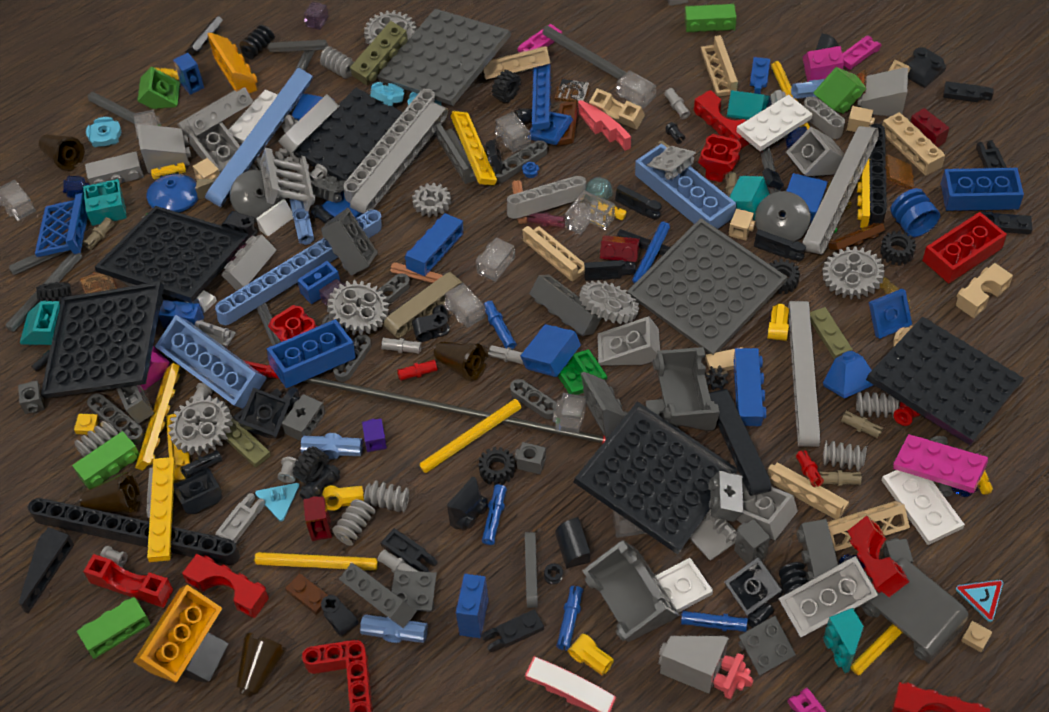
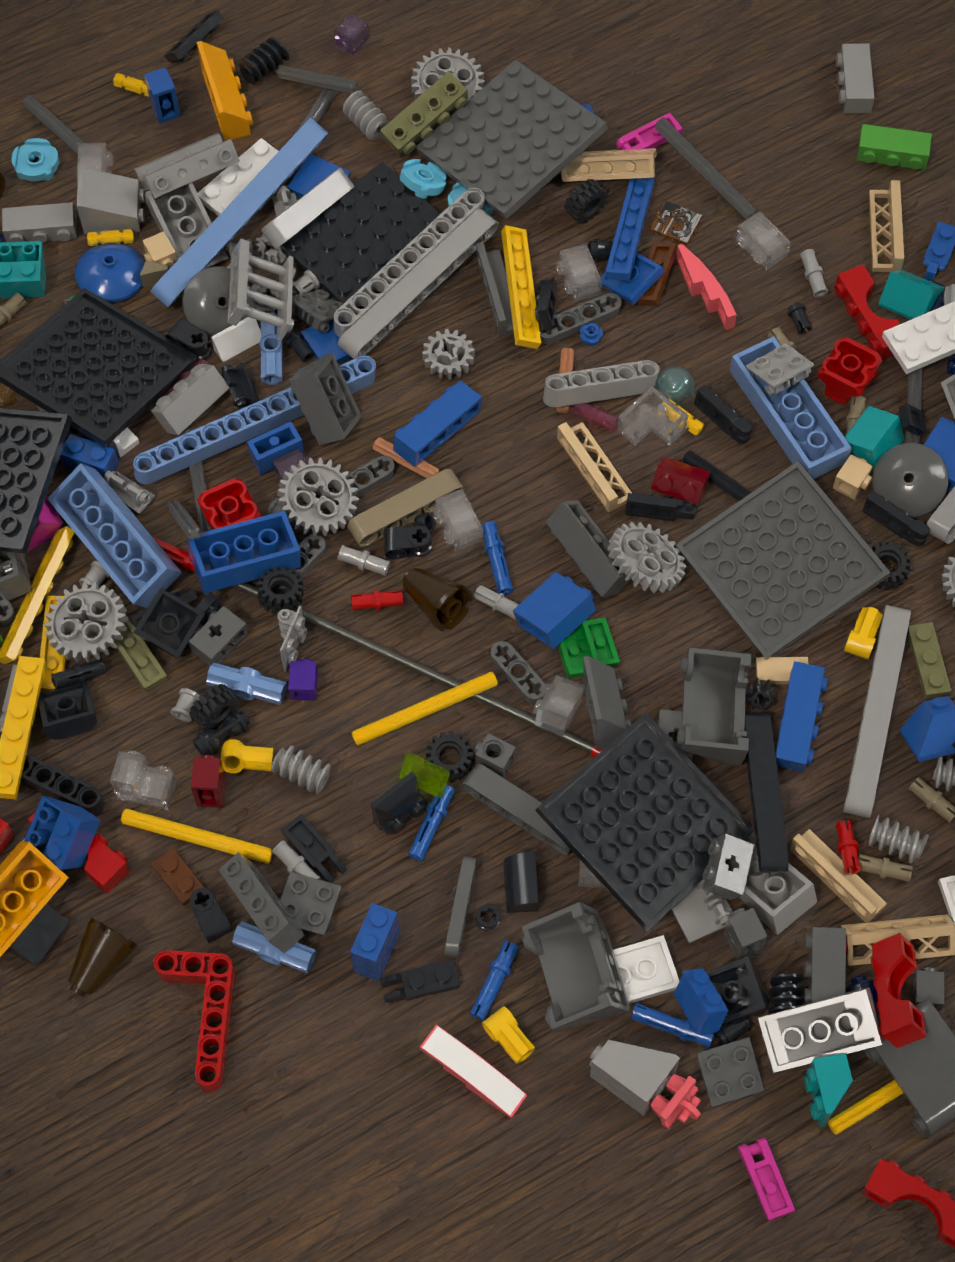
camera: 10 degrees right, 10 degrees up
(158, 89) = (118, 110): bright green slope -> none
(211, 574) = (62, 832): none -> blue slope
(240, 518) = (100, 768): light grey hinge -> none
(261, 339) = (184, 519): none -> dark grey axle
(266, 531) = (142, 784): none -> clear brick
(279, 499) = (166, 740): medium azure piece -> none
(283, 246) = (240, 385): none -> black hinge
(344, 367) = (280, 578): none -> black tyre
(352, 520) = (251, 793): light grey piece -> none
(358, 402) = (292, 631): none -> light grey hinge
(487, 481) = (429, 776): none -> clear neon green tile
(495, 259) = (513, 460): clear brick -> none
(557, 491) = (512, 804): none -> dark grey beam
(627, 113) = (727, 268): tan arch -> none
(629, 344) = (660, 621): light grey slope -> none
(652, 250) = (722, 493): blue axle -> none
(731, 597) = (700, 1001): none -> blue brick

